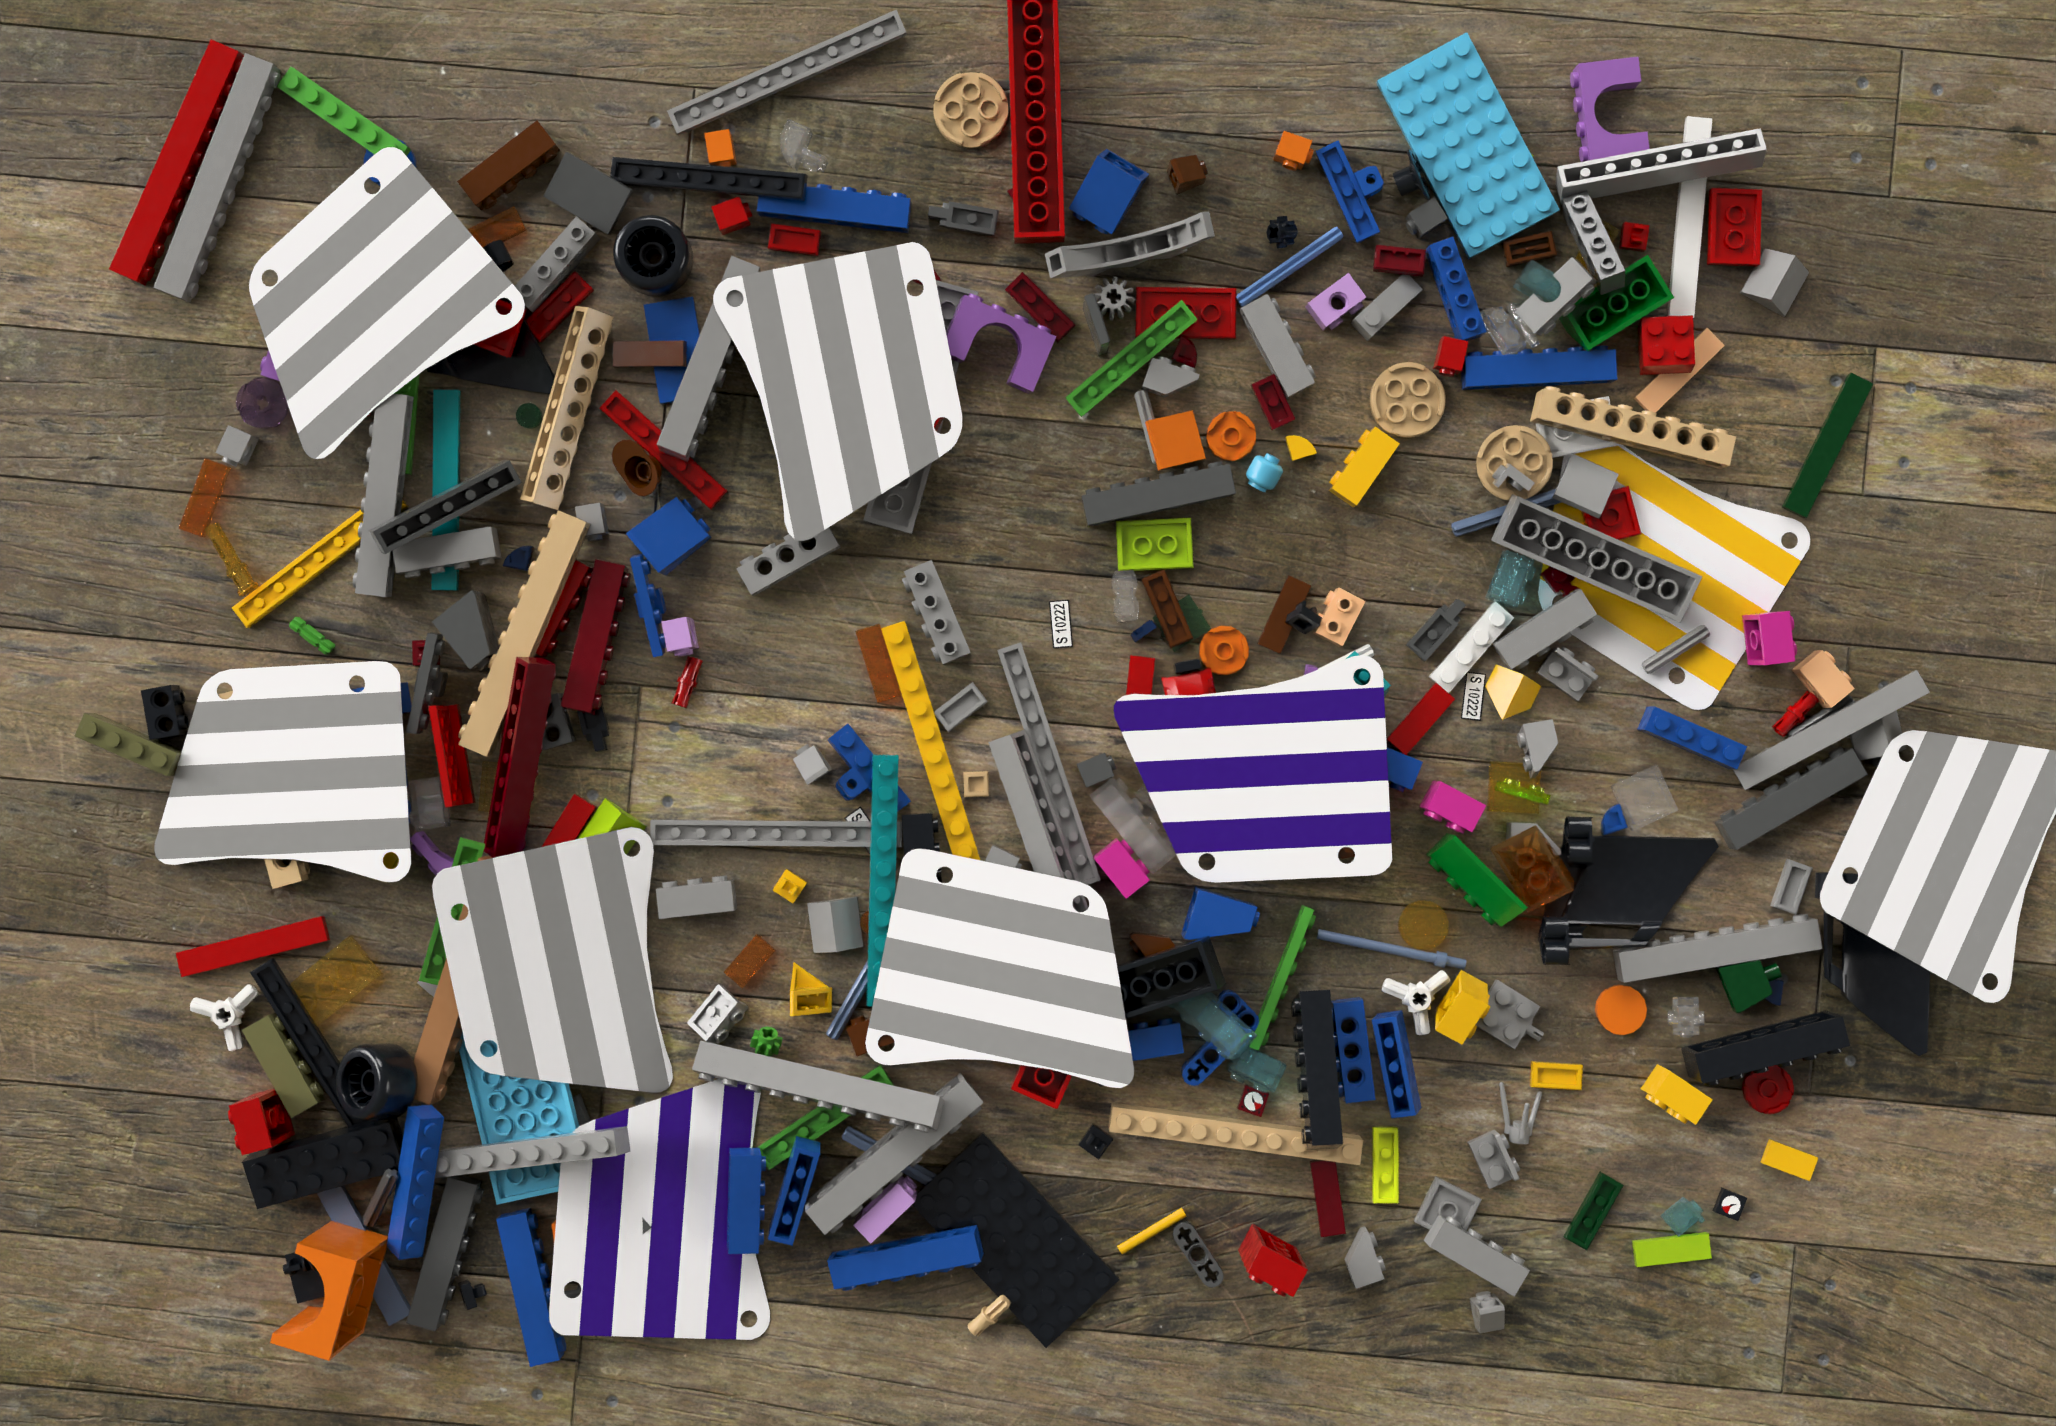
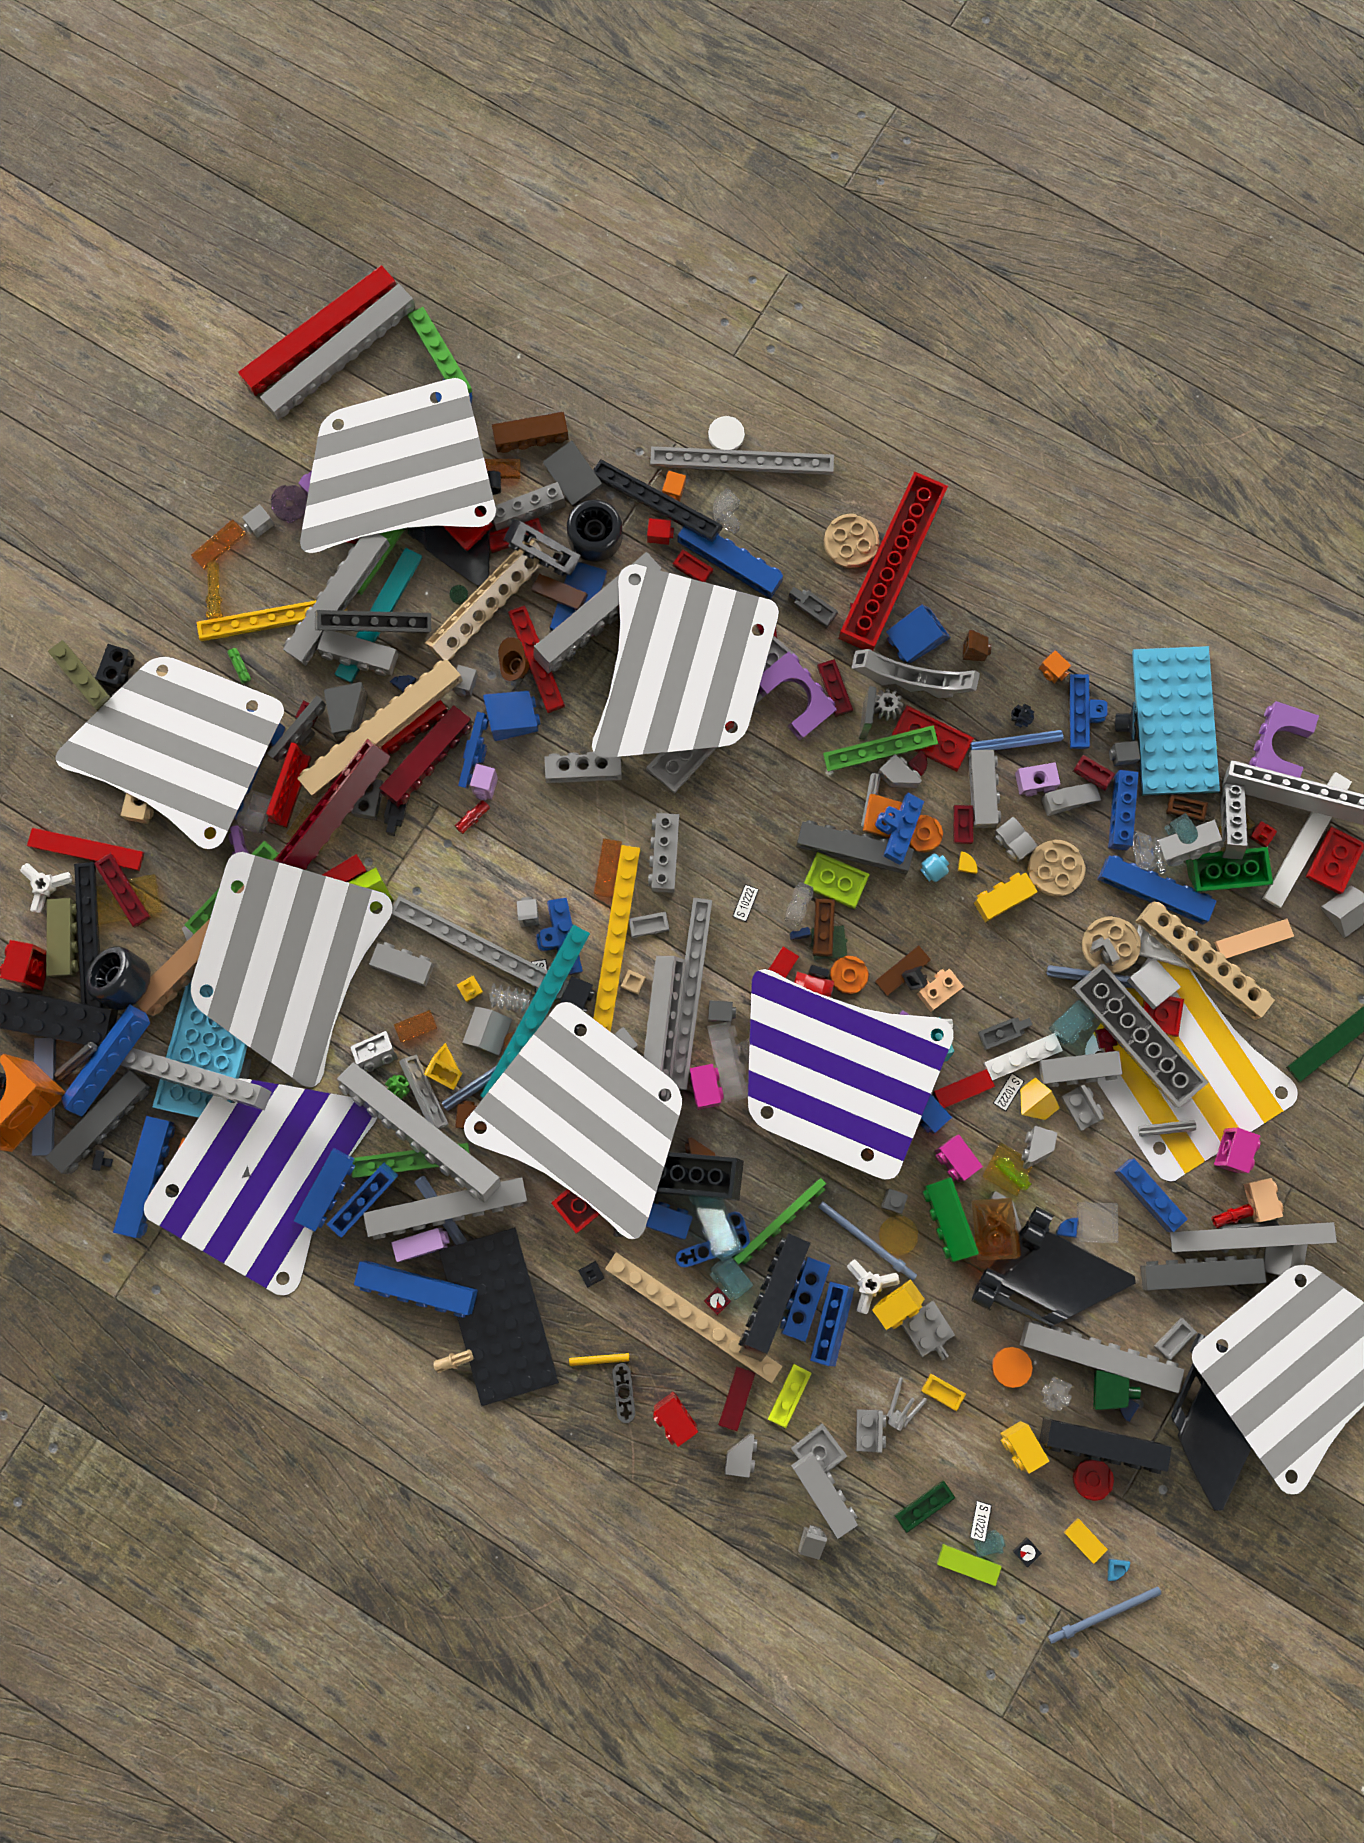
camera: 20 degrees right, 10 degrees down
(323, 974) = (122, 890): none -> dark red tile
(638, 313) = (516, 535): none -> brick
(750, 46) = (726, 433): none -> white tile
(799, 1033) = (423, 1091): none -> light grey tile
(843, 876) = (511, 999): none -> clear piece
(1201, 444) = (900, 826): none -> blue plate
(1217, 915) = (758, 1153): blue slope -> none
(1343, 390) = (1015, 840): none -> light grey brick
(1401, 890) = (894, 1201): none -> dark grey brick
(1450, 356) = (1099, 851): red brick -> none
(1663, 1196) = (980, 1521): none -> white sticker
(1666, 345) = (1253, 915): red brick -> none
(1813, 1267) = (1069, 1631): none -> sand blue bar
(1838, 1172) = (1117, 1569): none -> dark azure tile

